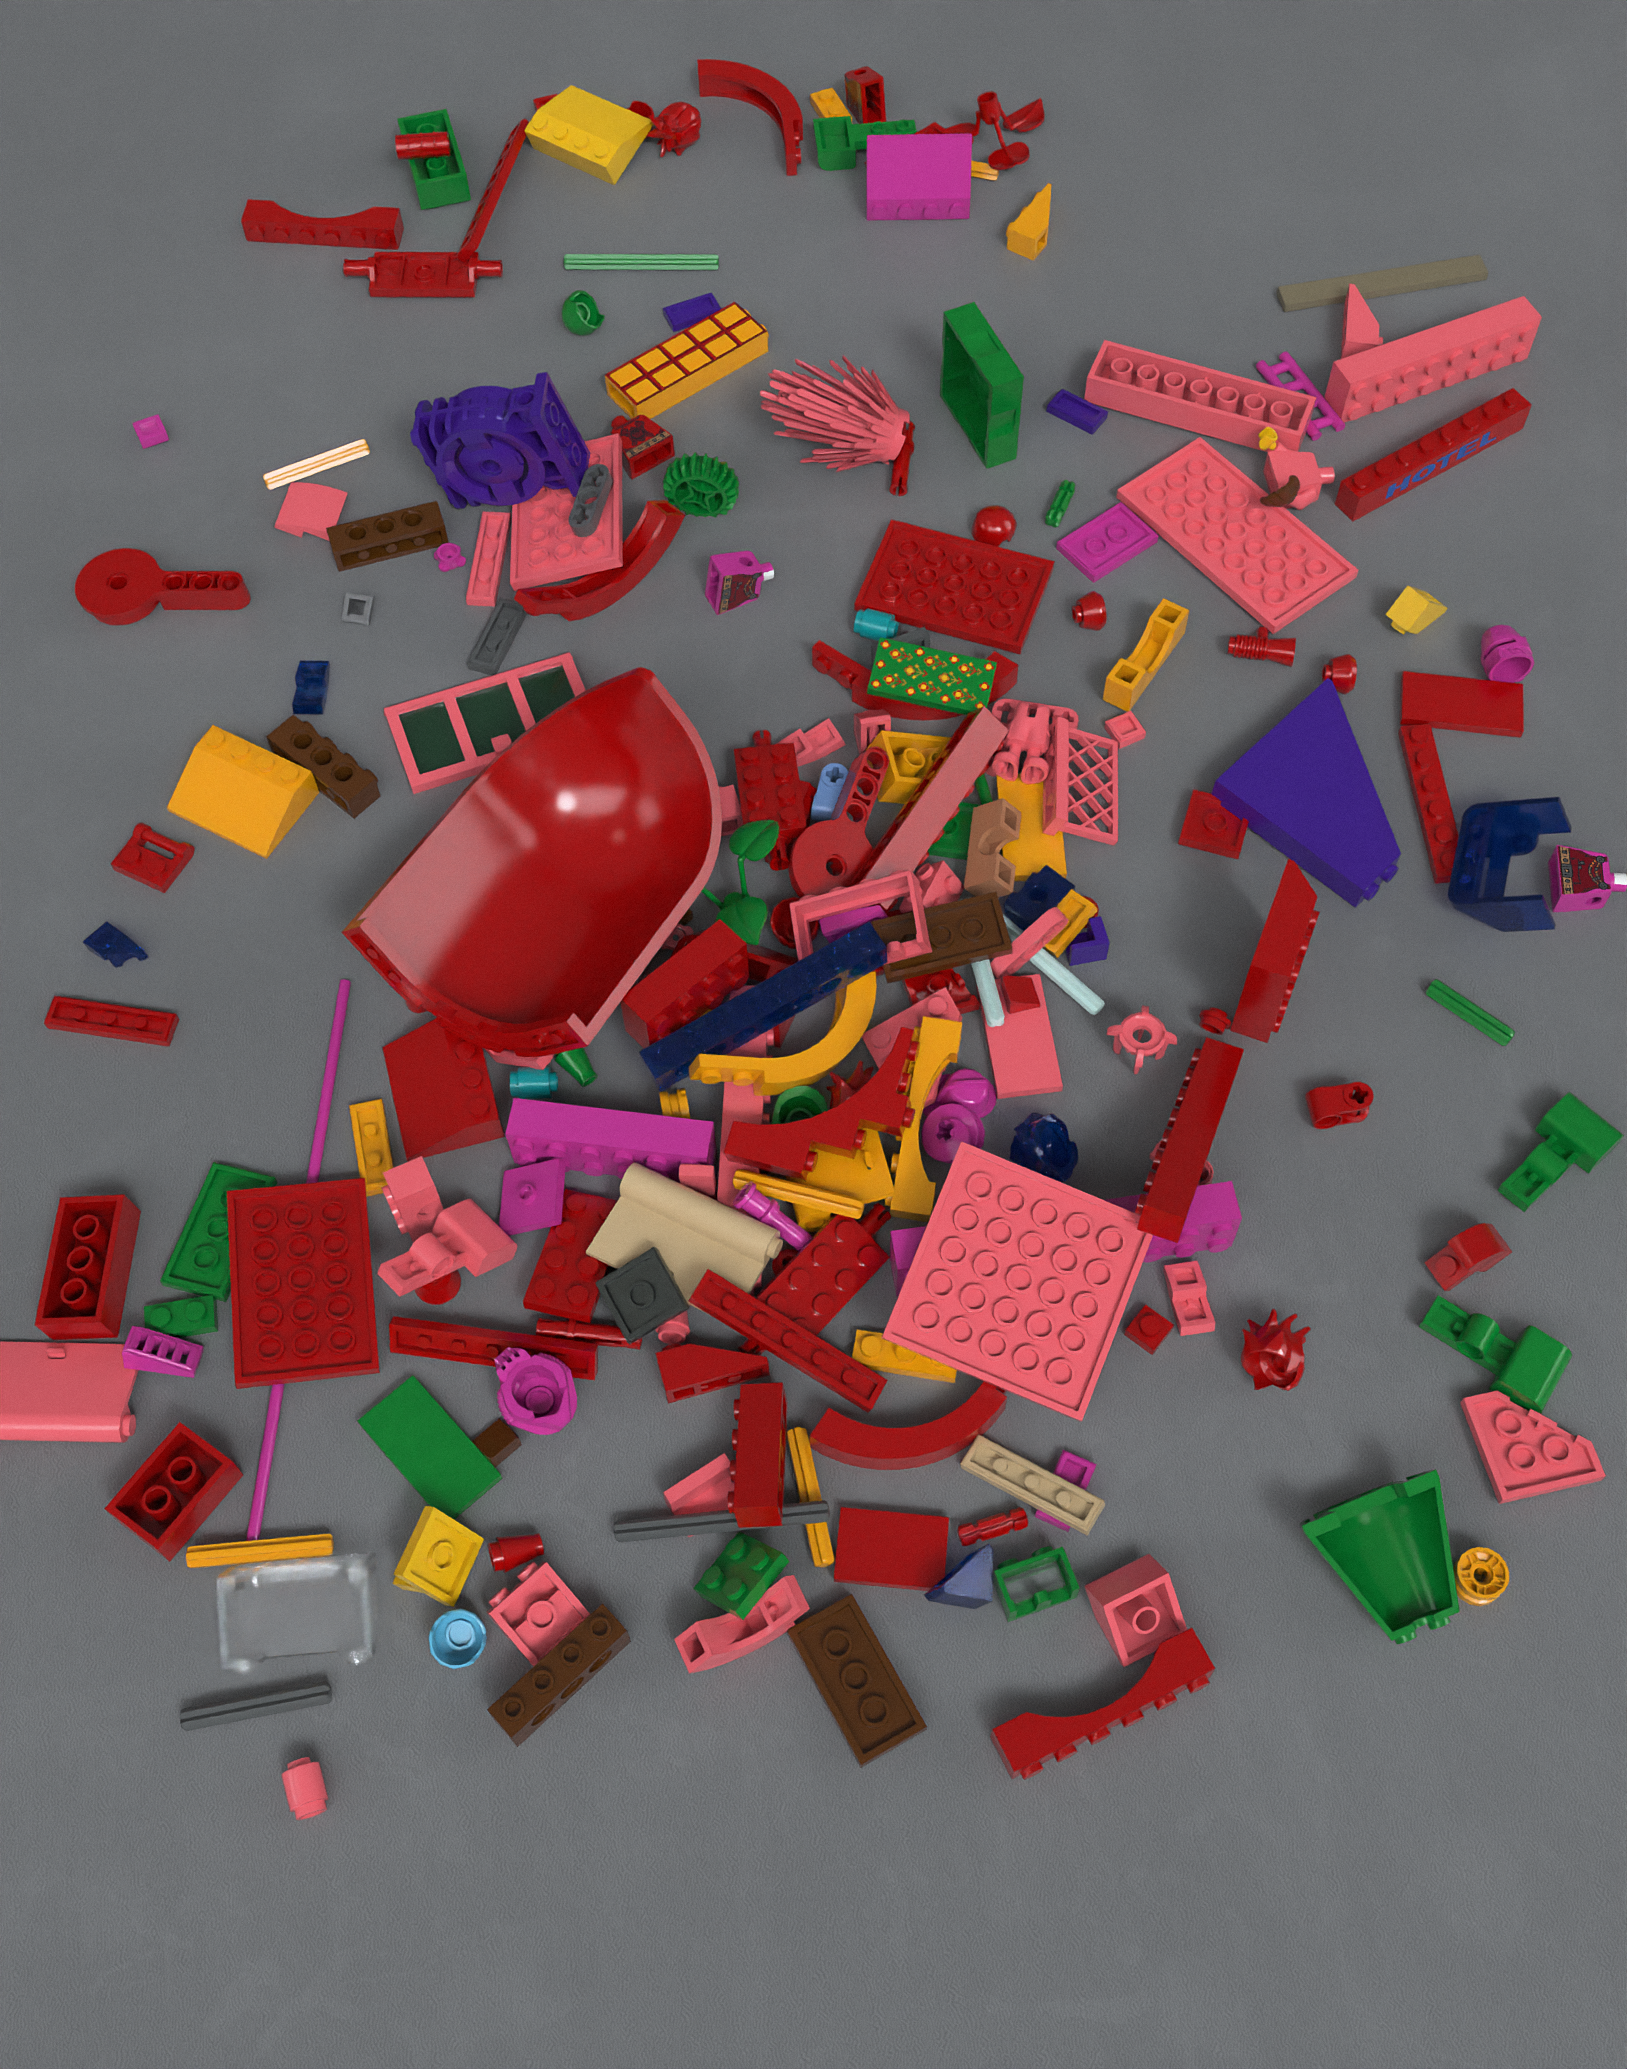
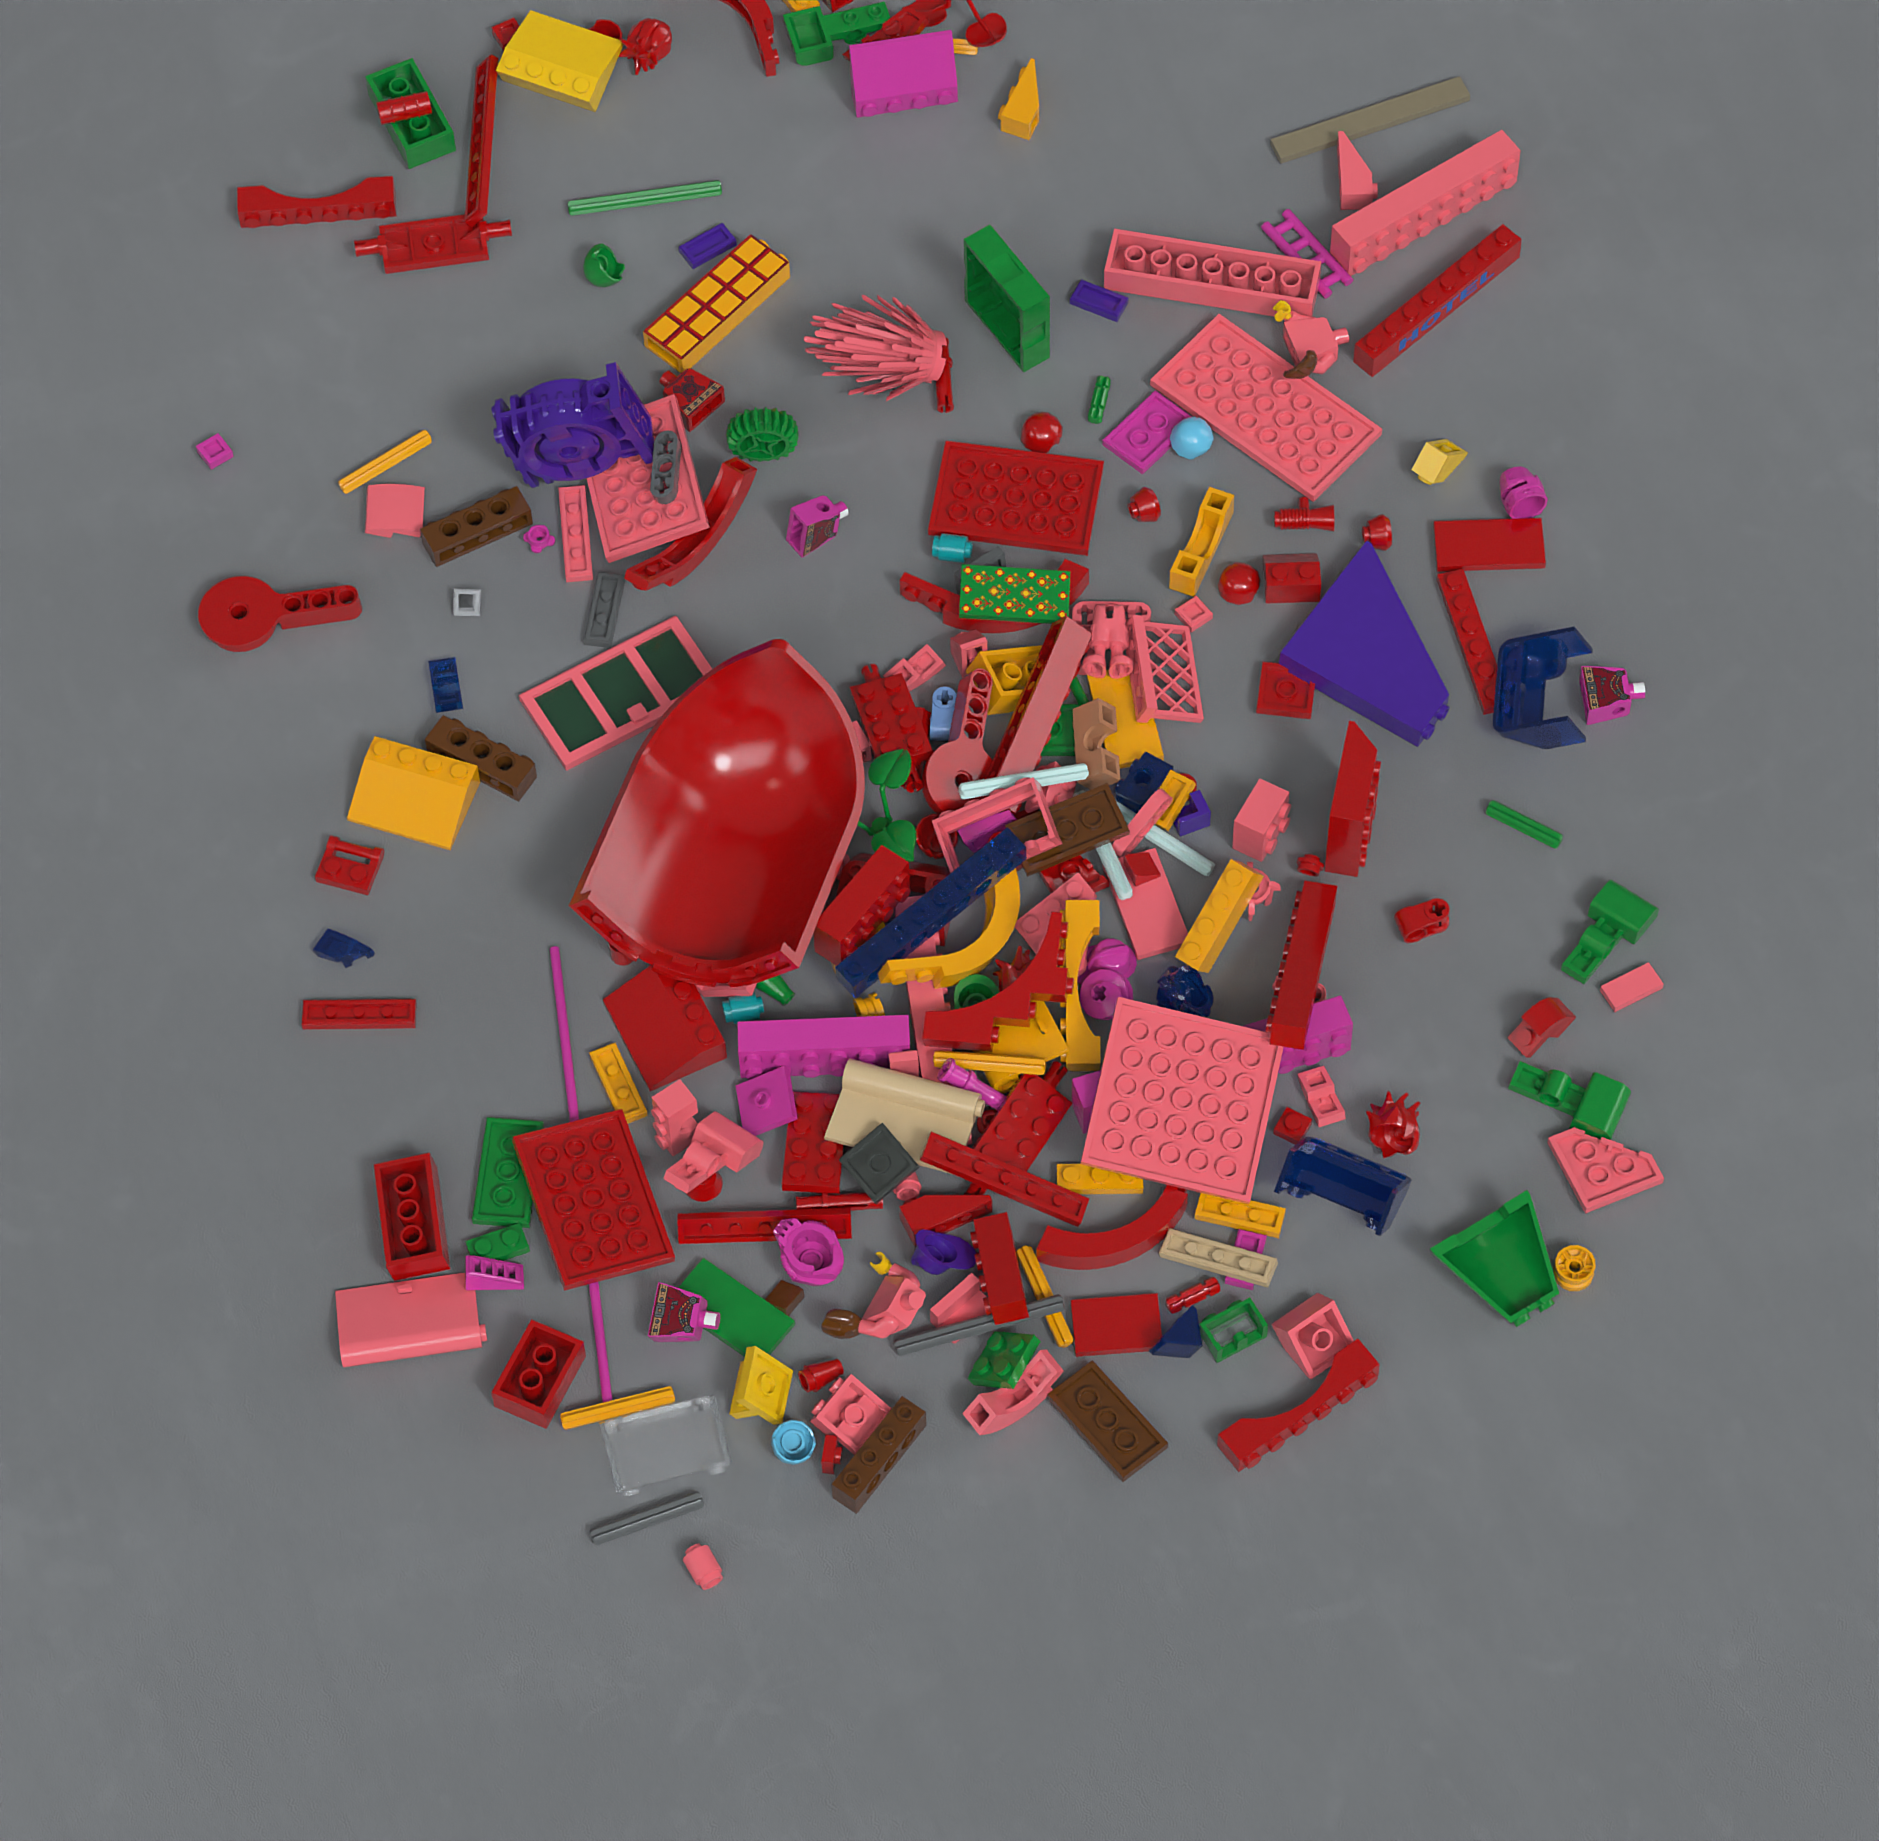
camera: 10 degrees left, 0 degrees up
(362, 1445) = (680, 1316): none -> torso
(501, 1662) = (831, 1454): none -> red plate
(615, 1483) = (889, 1310): none -> coral torso
(695, 1419) = (940, 1252): none -> dark purple piece
(926, 874) = (1044, 777): none -> light aqua axle
(1084, 1438) = (1252, 1217): none -> light orange plate
(1100, 1063) = (1219, 916): none -> light orange brick
(1152, 551) = (1191, 437): none -> medium azure hair
(1166, 961) = (1261, 820): none -> coral brick
(1179, 704) = (1239, 583): none -> red hair
(1205, 1410) = (1344, 1179): none -> clear blue windscreen
(1239, 708) = (1292, 578): none -> red slope
(1581, 1225) = (1631, 987): none -> coral tile

